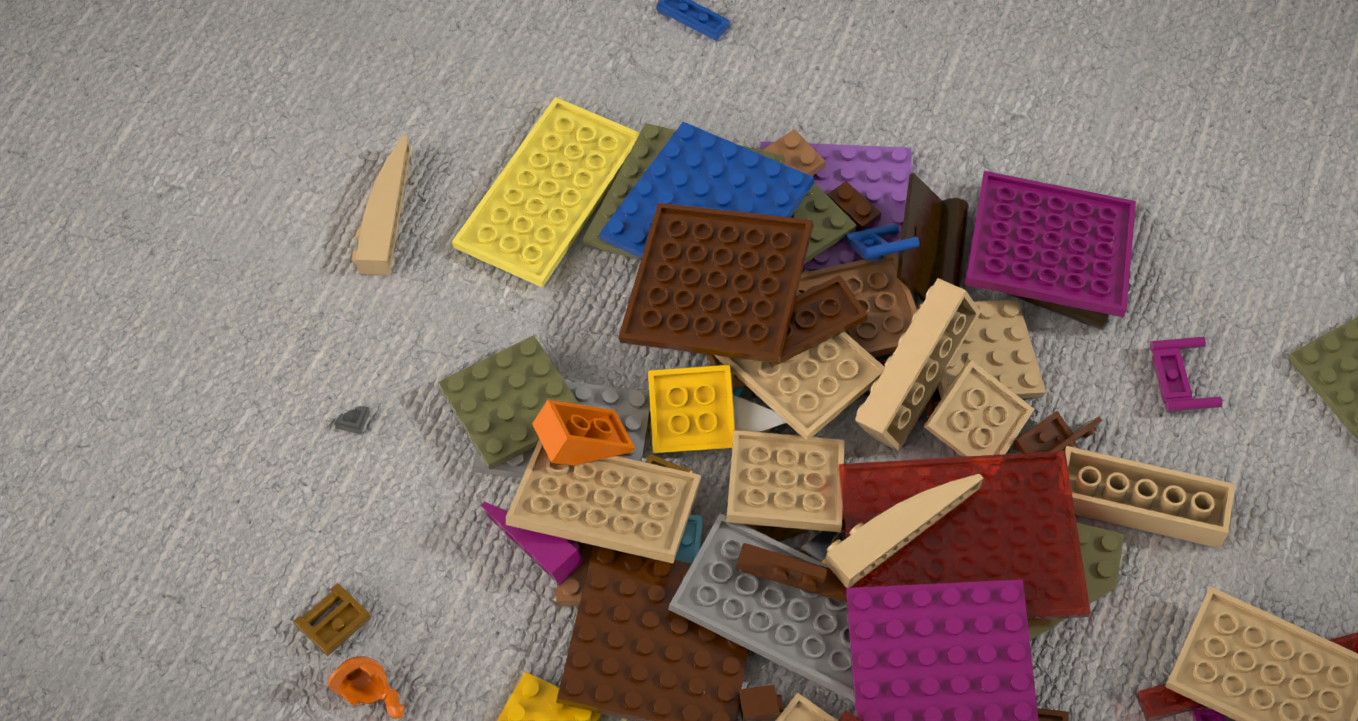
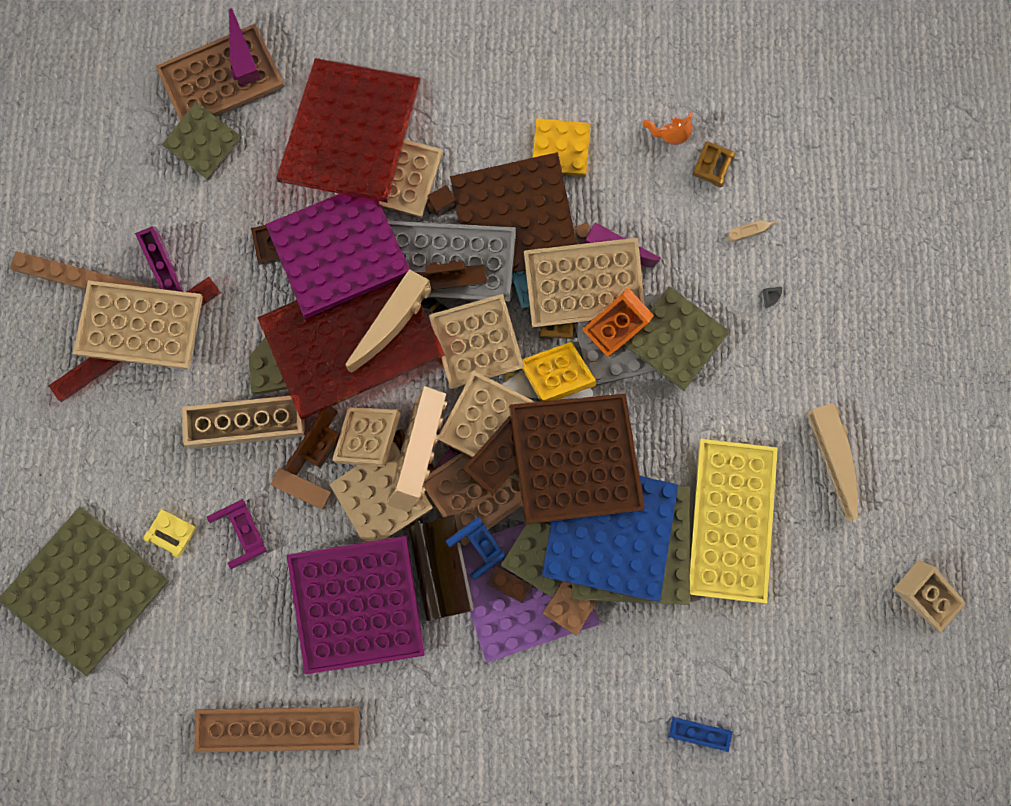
camera: 155 degrees right, 20 degrees up
(333, 513) = (749, 230): none -> tan piece
(366, 50) = (930, 595): none -> tan slope
(1085, 401) = (301, 488): none -> medium nougat tile
(1185, 162) = (277, 729): none -> medium nougat plate
(1270, 413) = (172, 527): none -> light yellow plate

